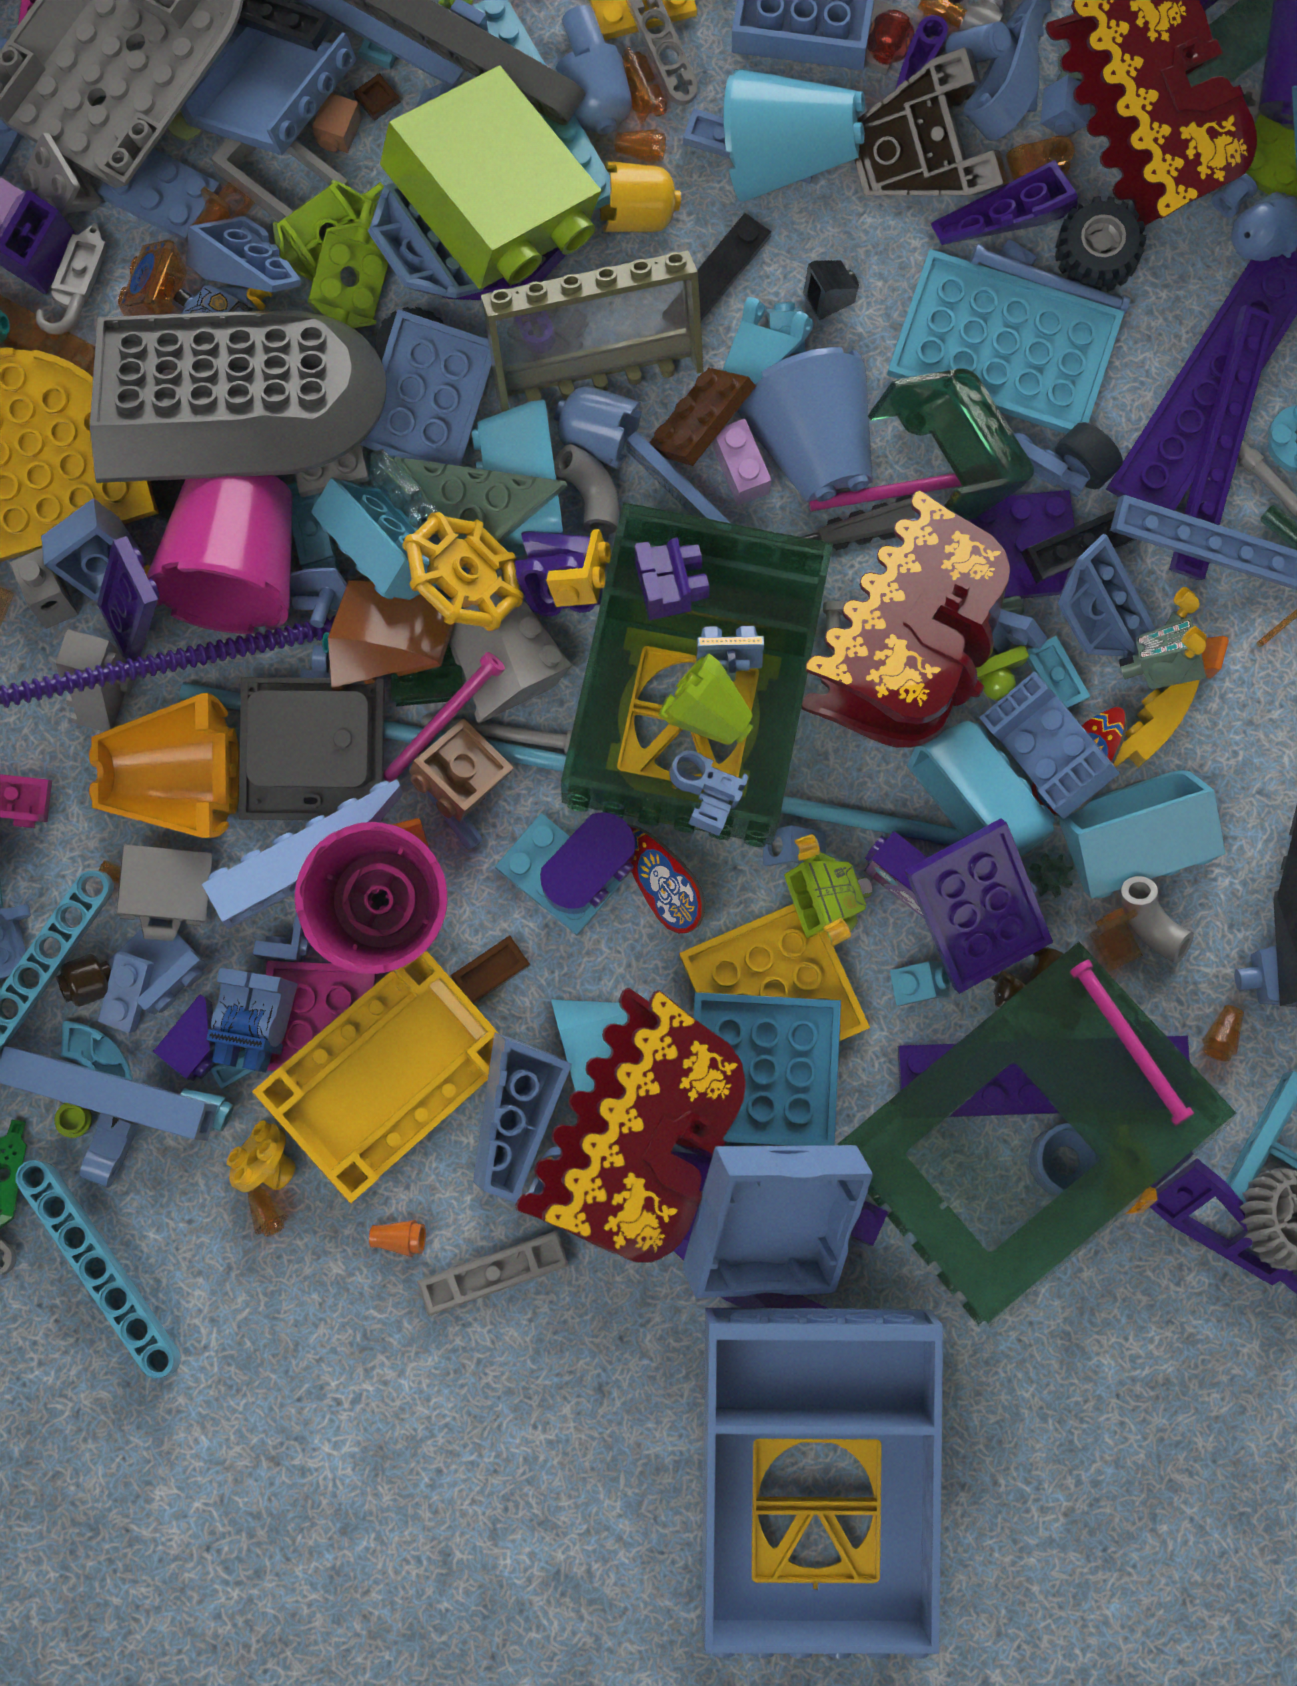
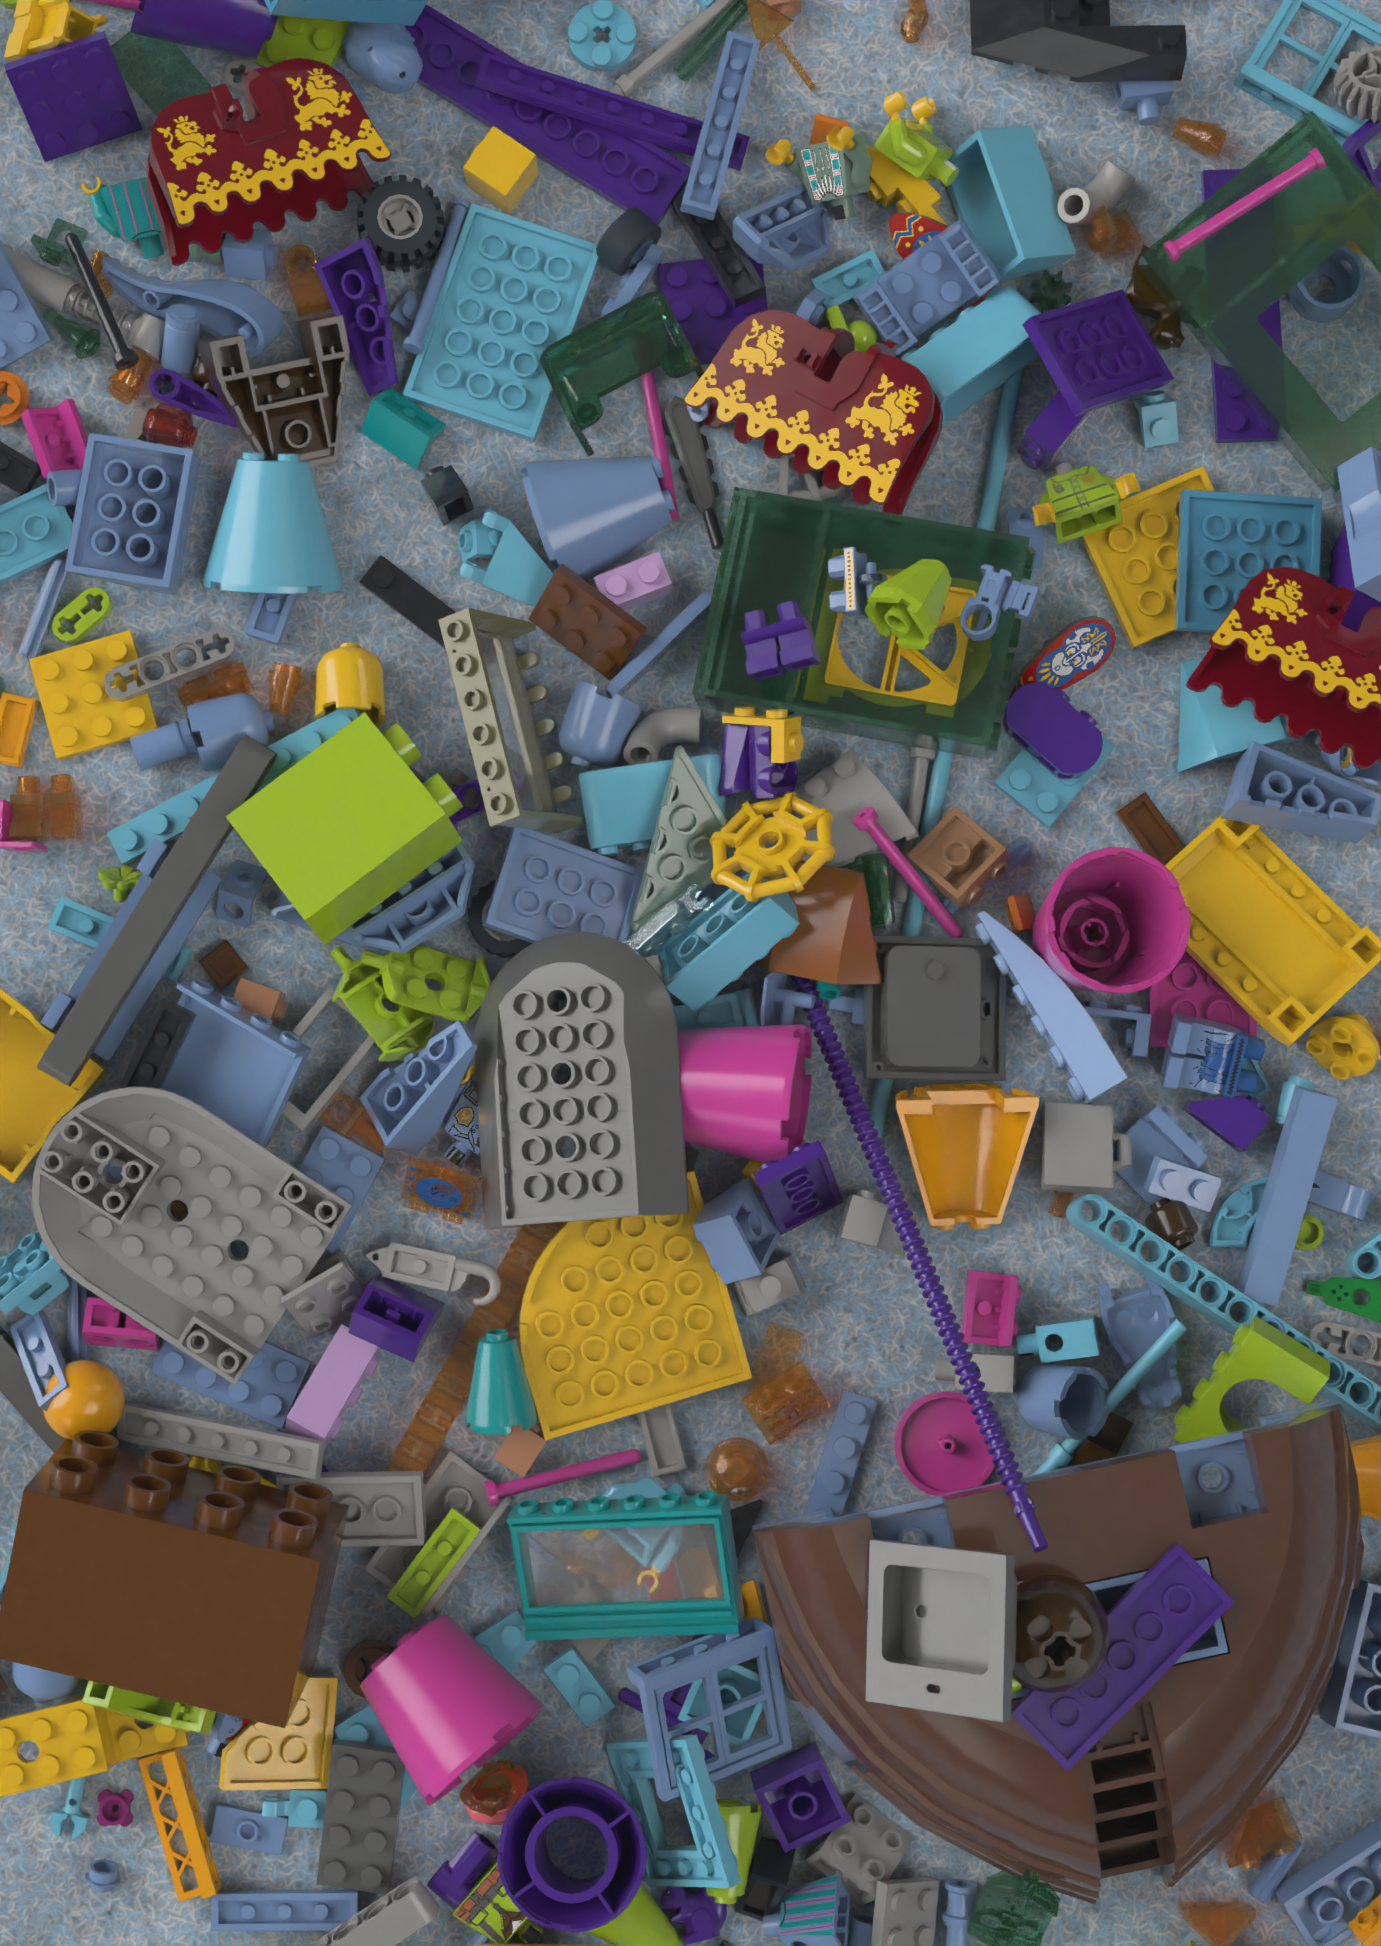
camera: 85 degrees left, 5 degrees up
(900, 250) = (401, 426): none -> teal panel
(1157, 336) = (501, 170): none -> yellow head
(1200, 732) = (914, 143): none -> lime torso

